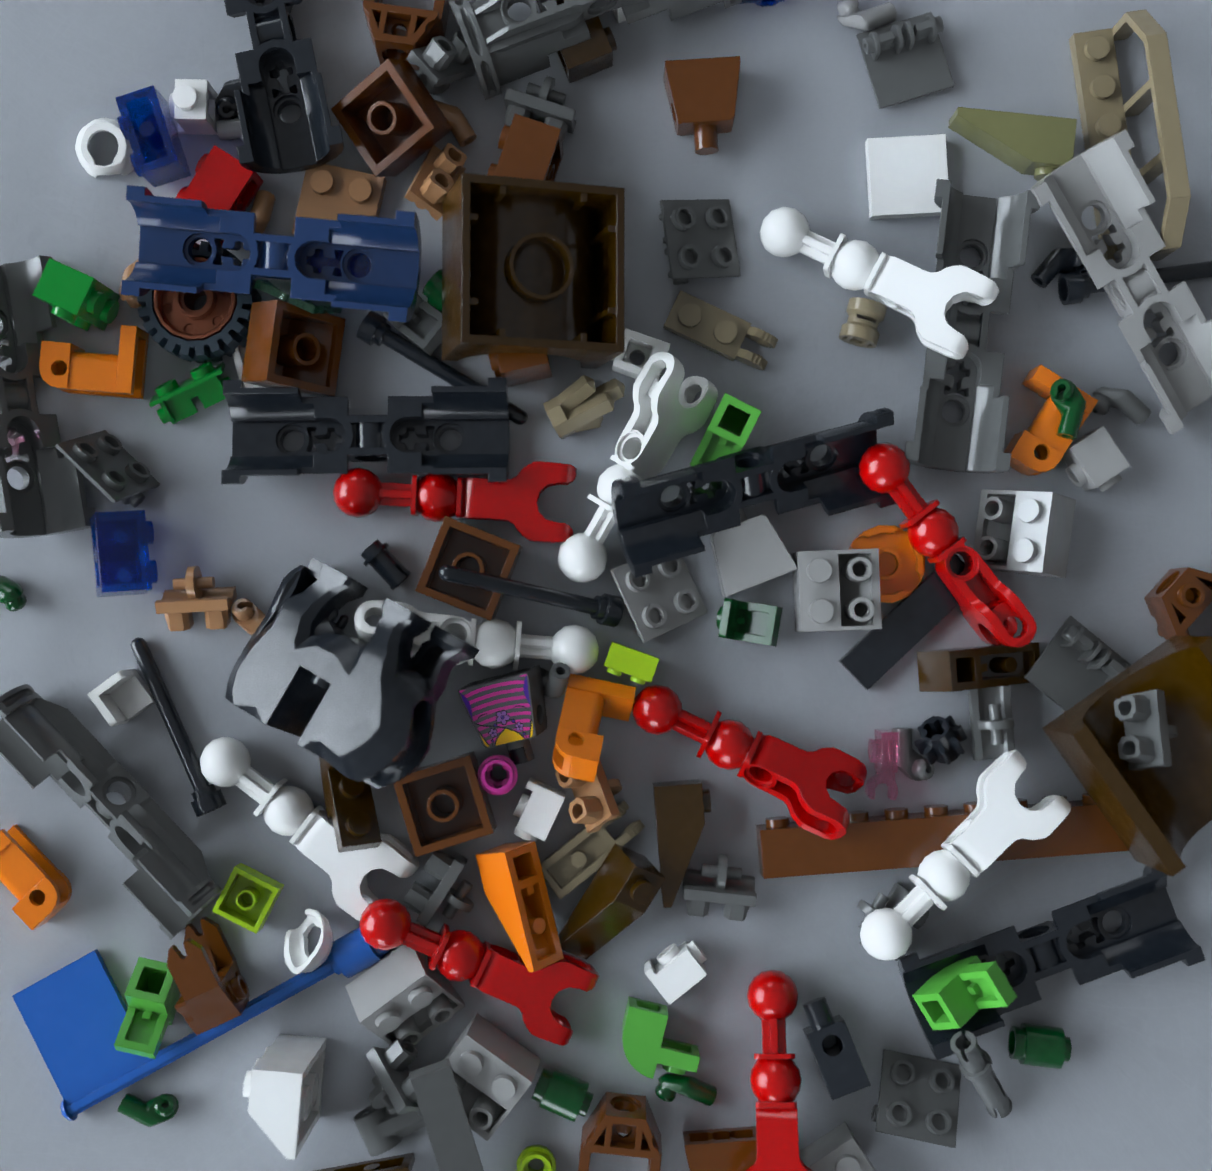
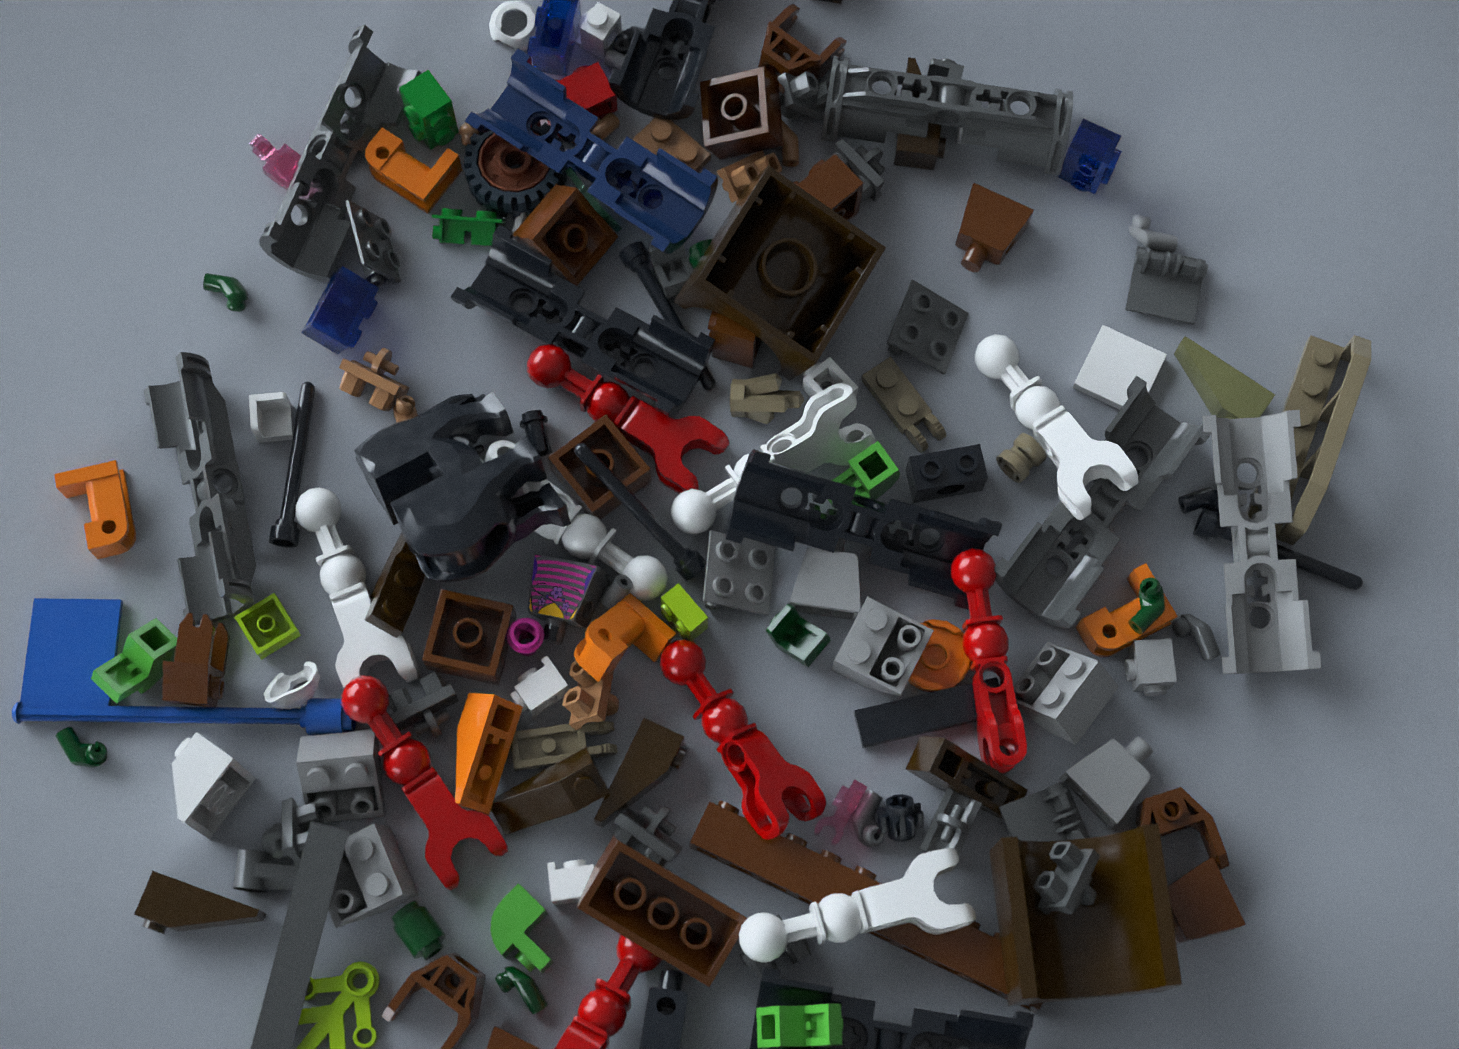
camera: 25 degrees right, 15 degrees down
(775, 958) = (661, 911): none -> reddish brown slope
(801, 380) = (946, 473): none -> black brick
(1112, 590) = (1110, 778): none -> light grey torso

